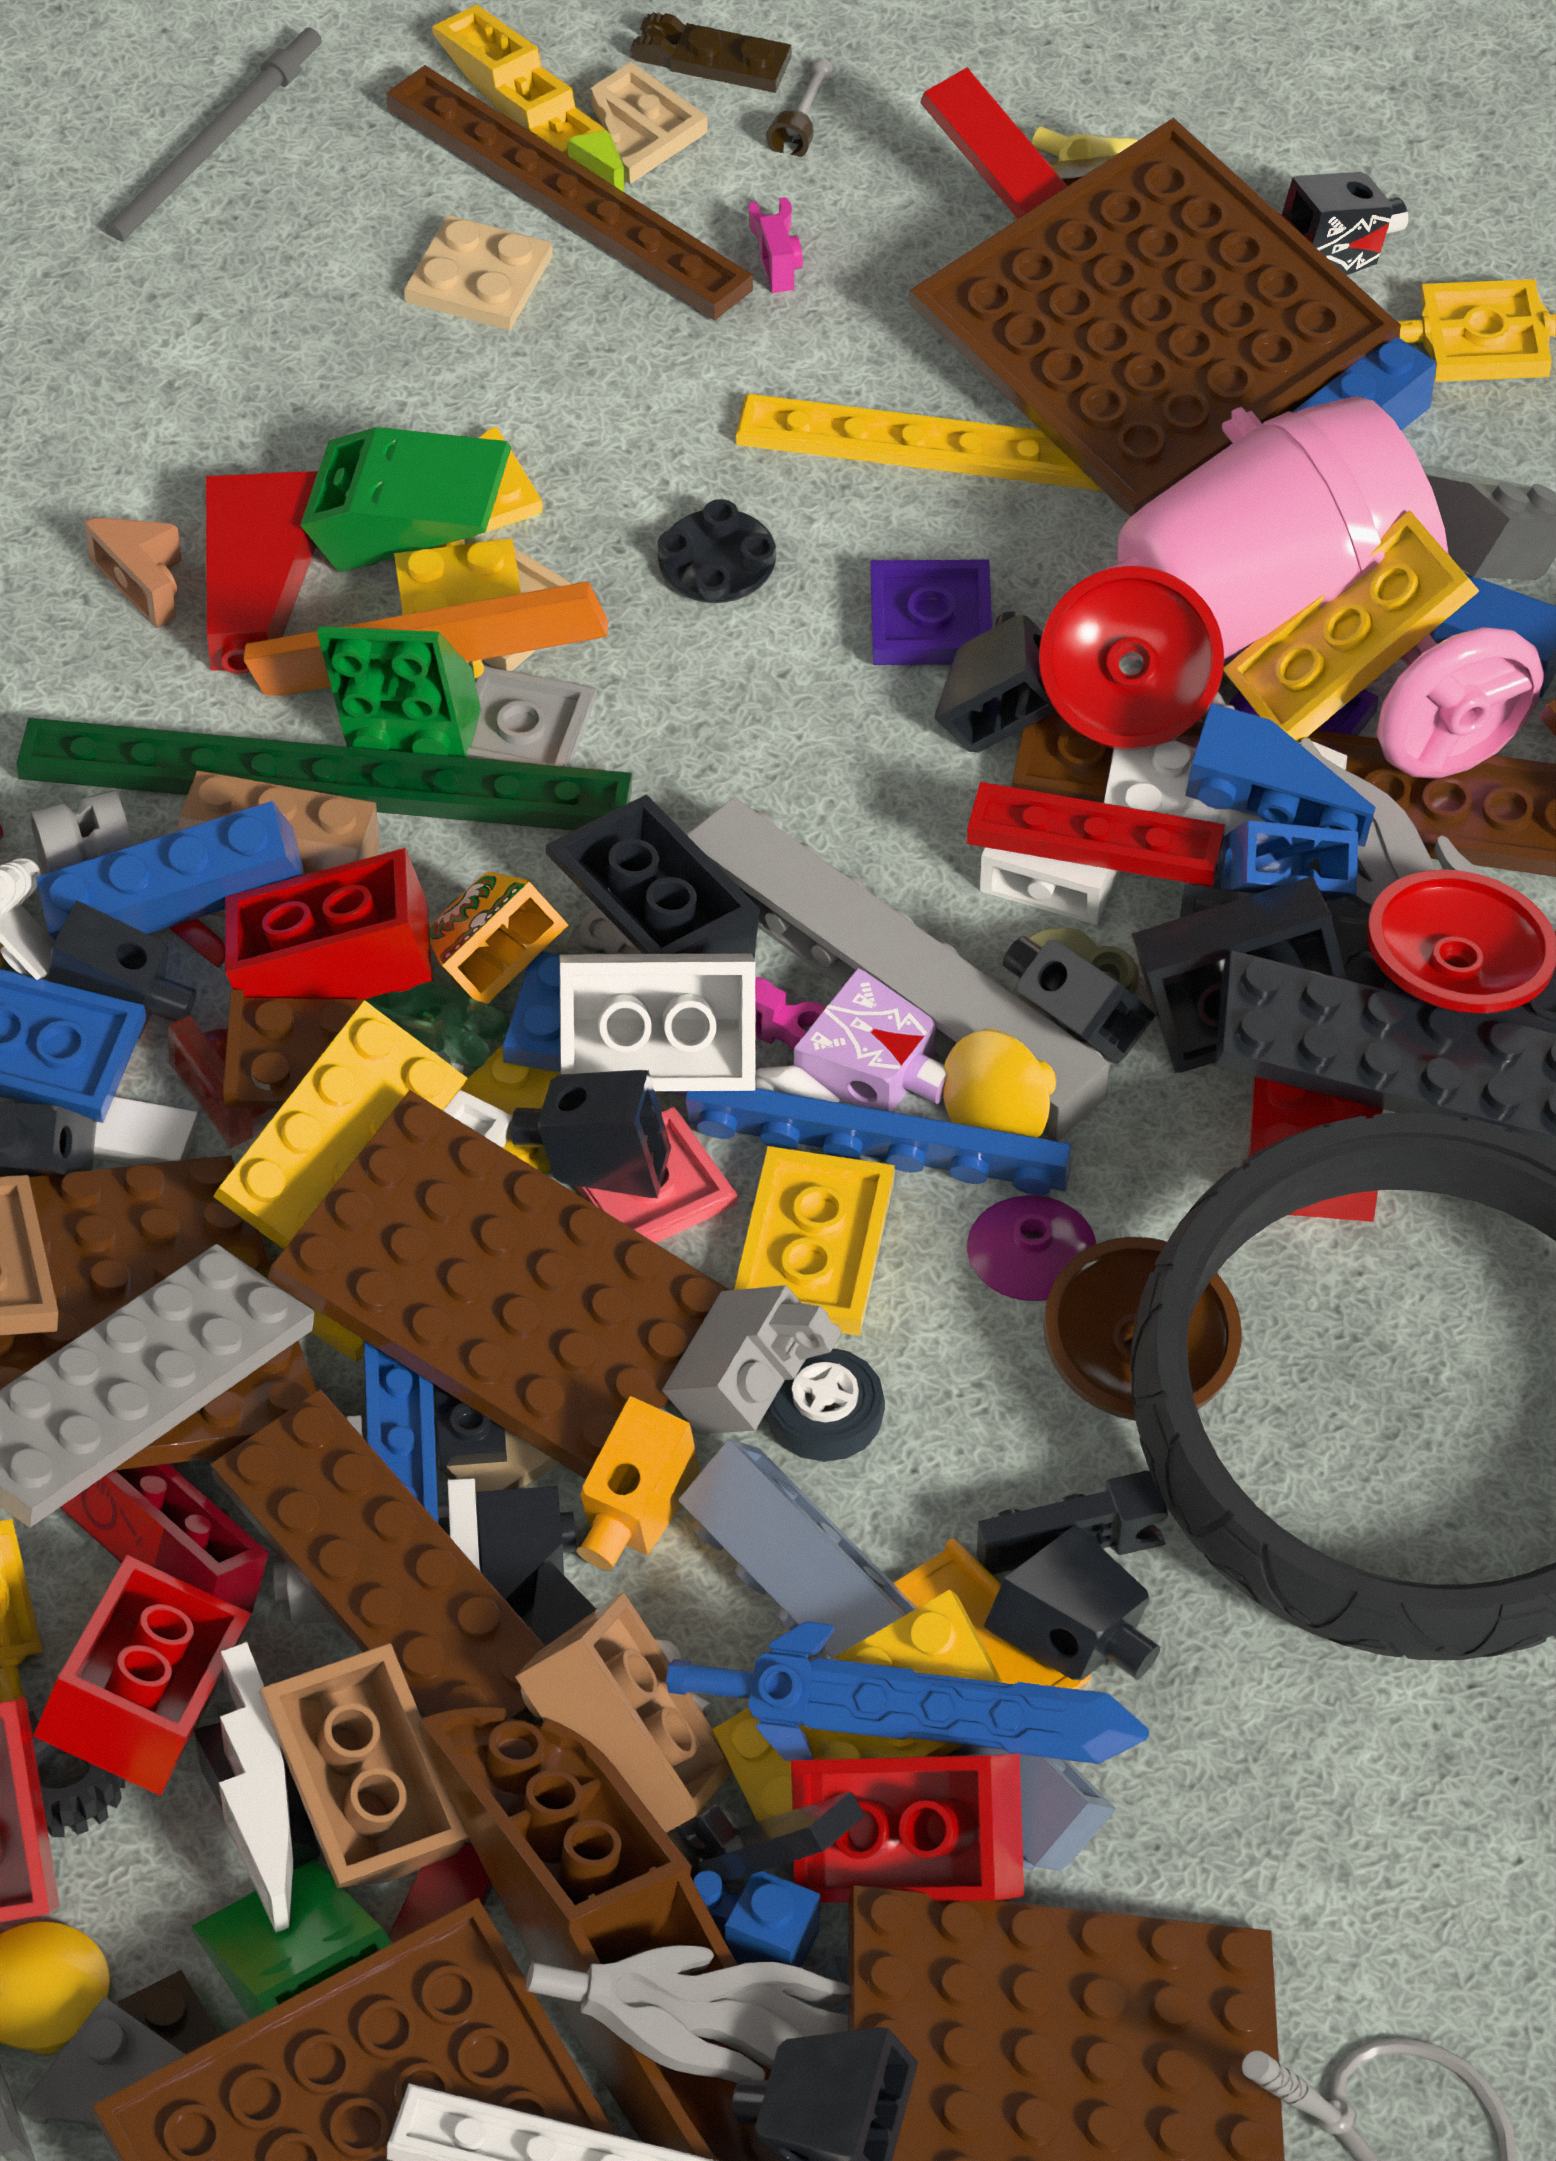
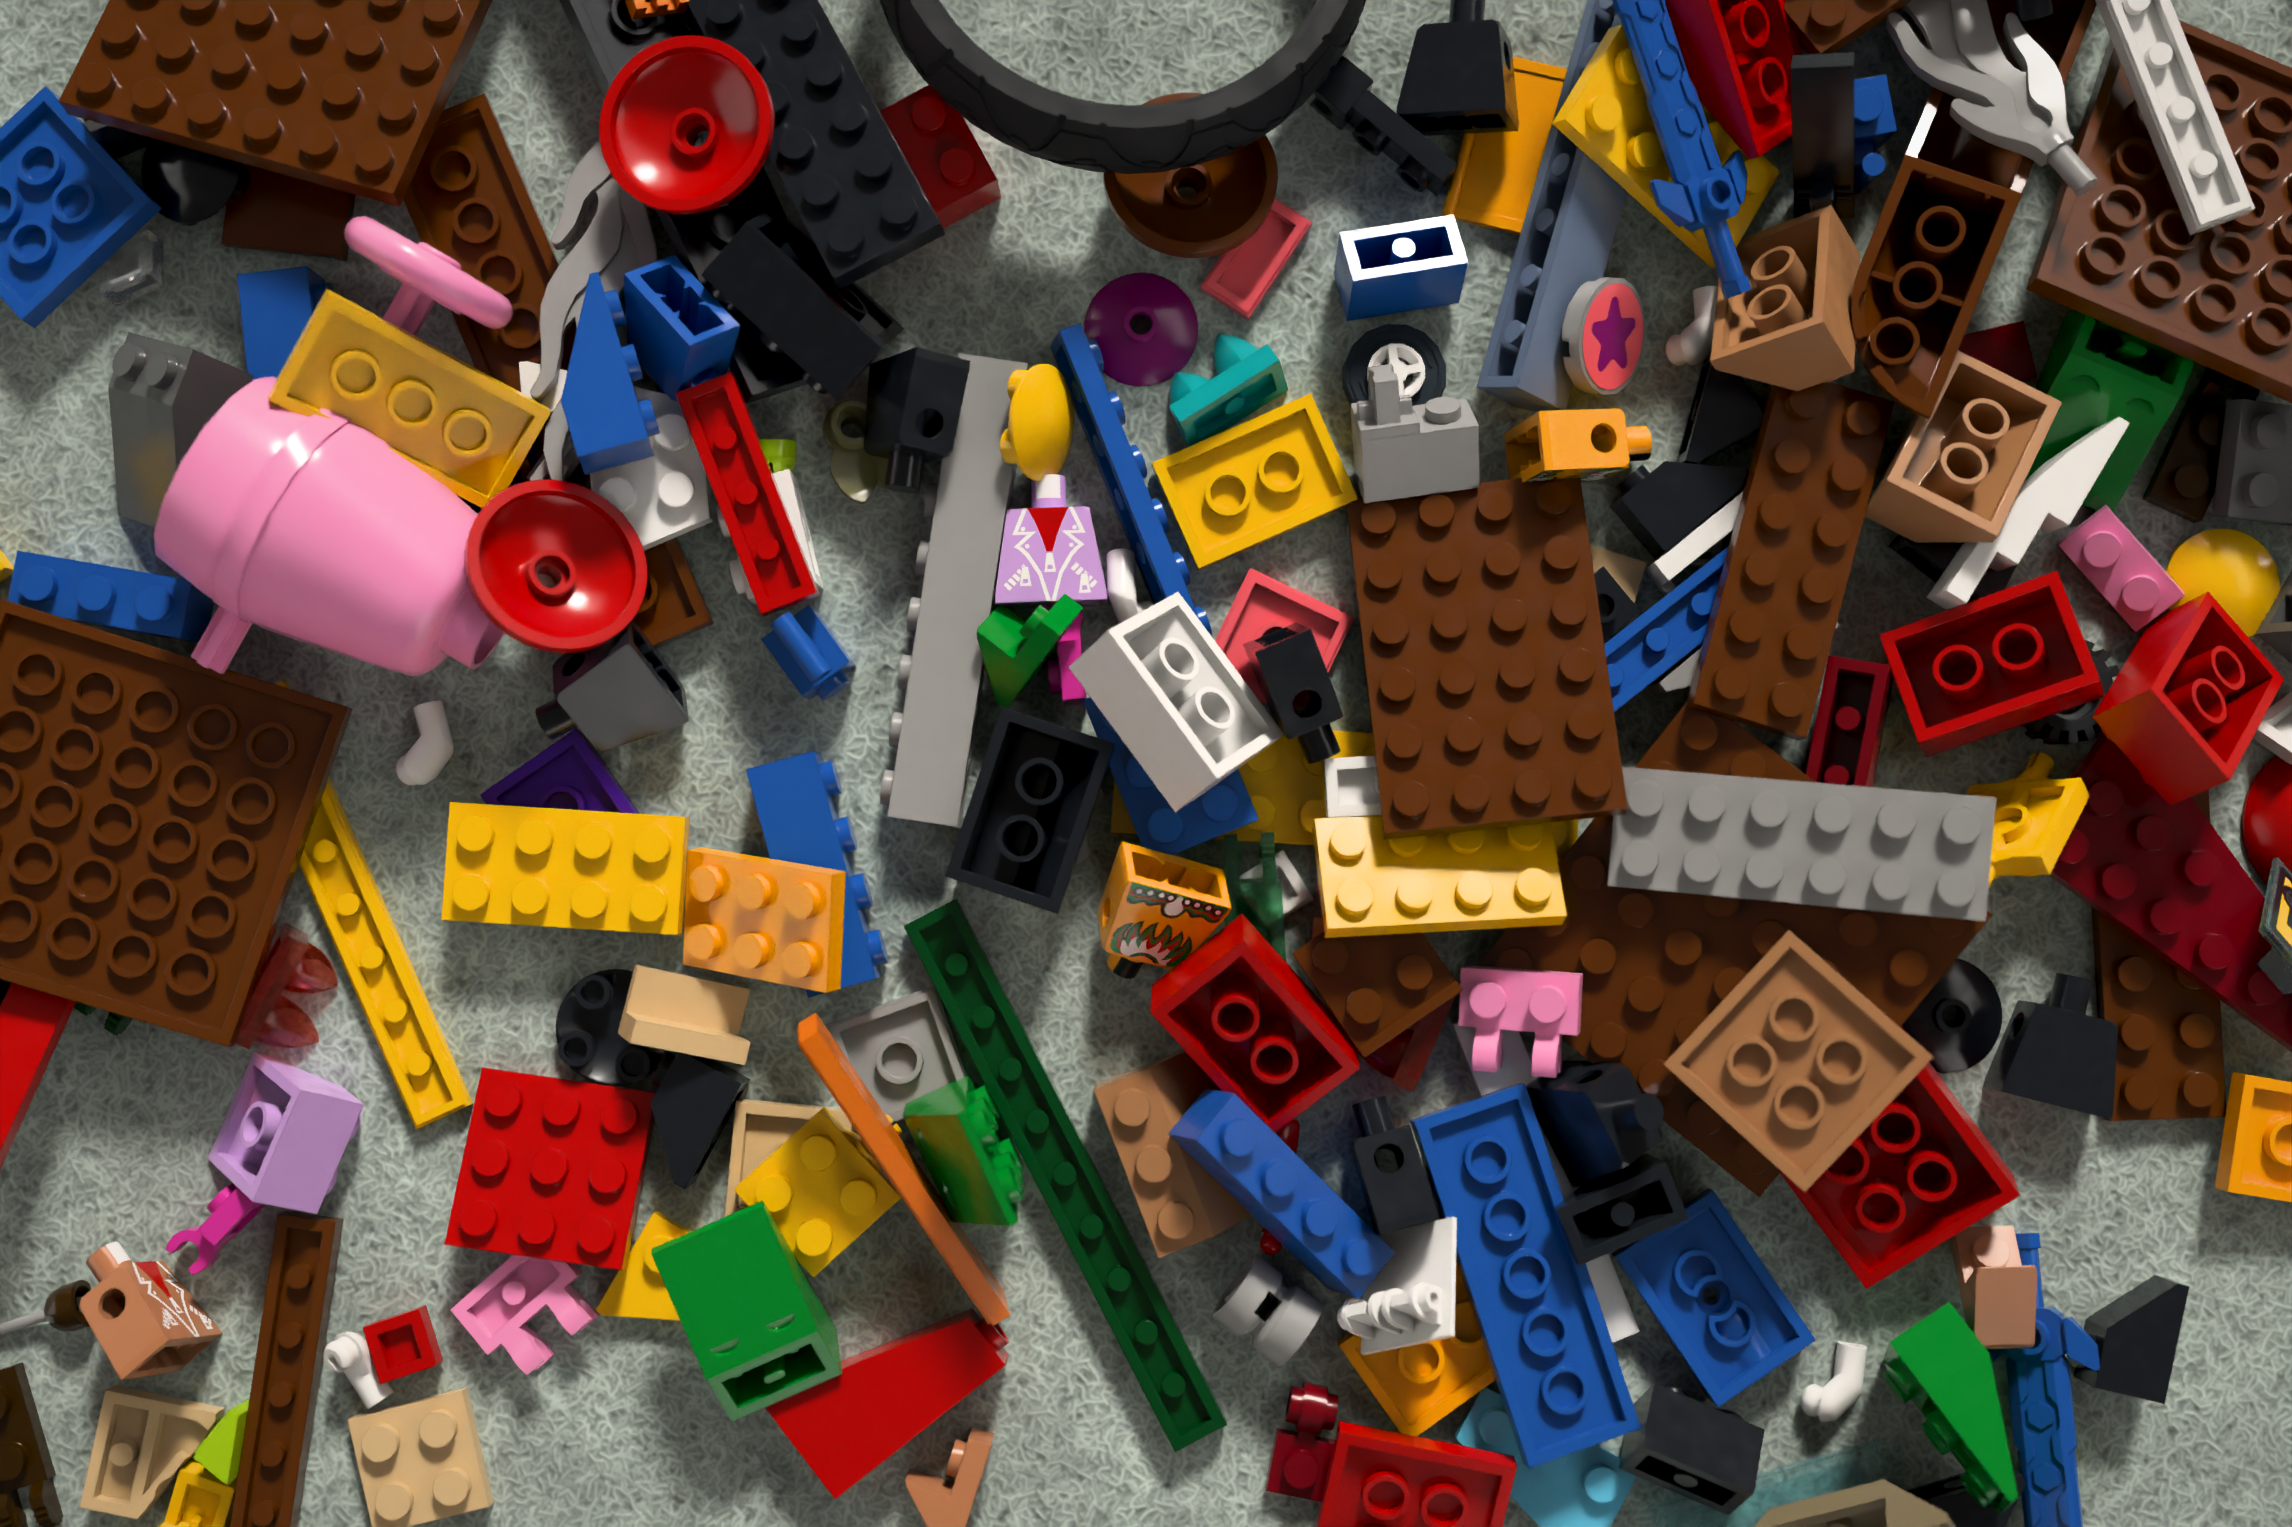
camera: 125 degrees left, 35 degrees up
(133, 1898) = (2121, 568): none -> bright pink plate
(173, 1138) = (1519, 1001): none -> bright pink plate
(556, 389) = (512, 1296): none -> bright pink plate
(580, 302) = (402, 1344): none -> red plate
(585, 272) = (352, 1356): none -> white arm
(605, 554) = (692, 1110): none -> black slope
(633, 453) = (552, 1169): none -> red plate
(681, 589) = (685, 1015): none -> tan panel
(719, 669) = (764, 919): none -> light orange plate
(723, 1572) = (1604, 335): none -> tile
(729, 740) = (805, 828): none -> blue brick
(743, 157) = (143, 1315): none -> nougat torso
(806, 963) = (1018, 648): none -> green slope
(809, 310) = (285, 1135): none -> lavender slope
(876, 577) = (565, 868): none -> yellow plate
(911, 1245) = (1244, 384): none -> teal tile
(920, 349) = (291, 967): none -> clear red tile
(923, 1447) = (1400, 267): none -> blue brick
(924, 831) = (809, 654): none -> blue brick
(1024, 1370) = (1249, 270): none -> coral tile
(1057, 556) = (432, 748): none -> white arm
(1126, 903) = (780, 453): none -> lime hinge

